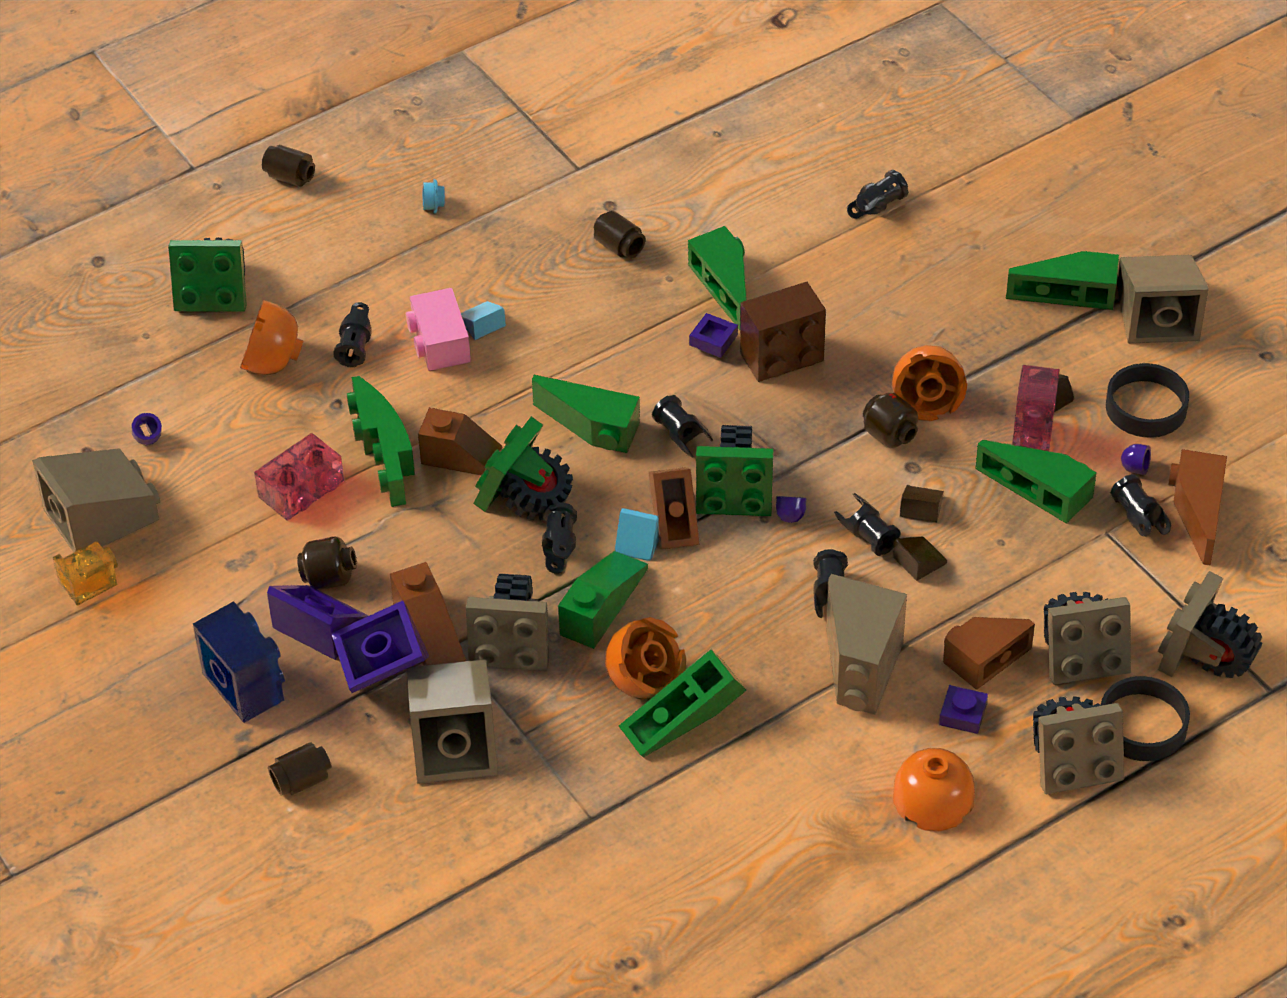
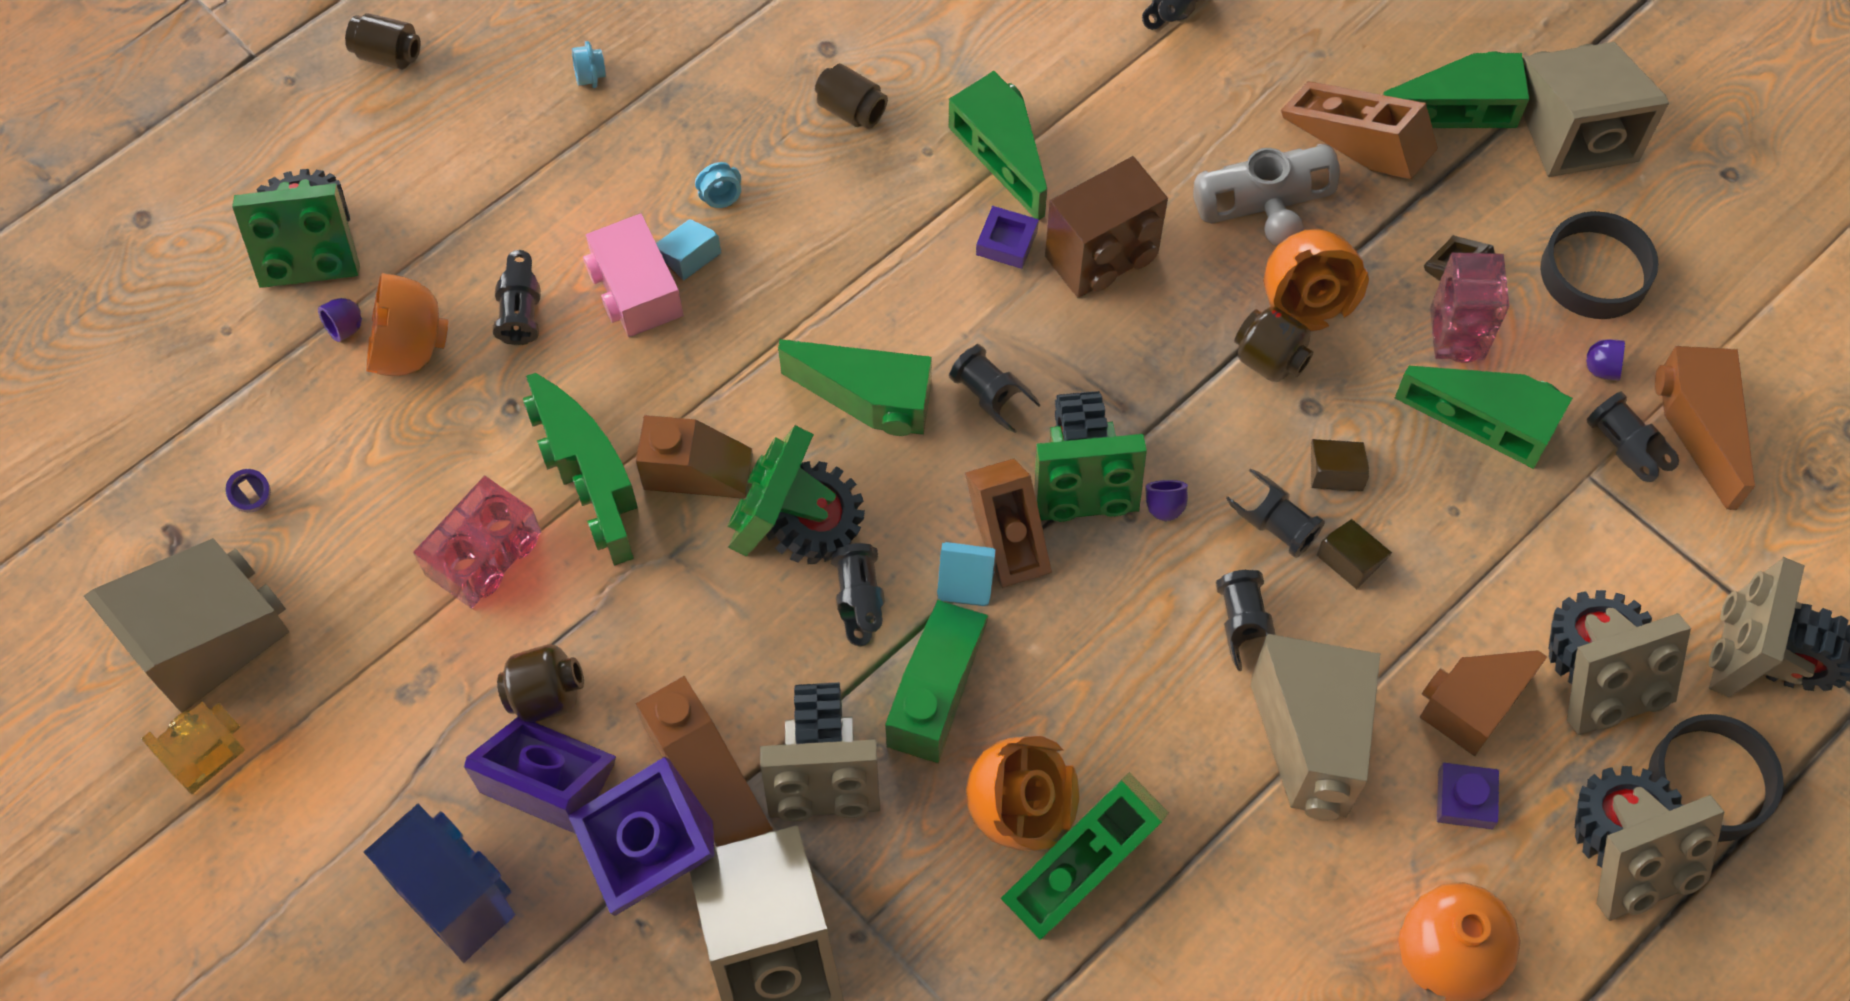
camera: 10 degrees left, 15 degrees up
(227, 334) = (340, 318): none -> dark purple hinge
(512, 288) = (719, 185): none -> medium azure plate
(912, 321) = (1252, 195): none -> light grey piece
(995, 293) = (1370, 128): none -> dark orange slope

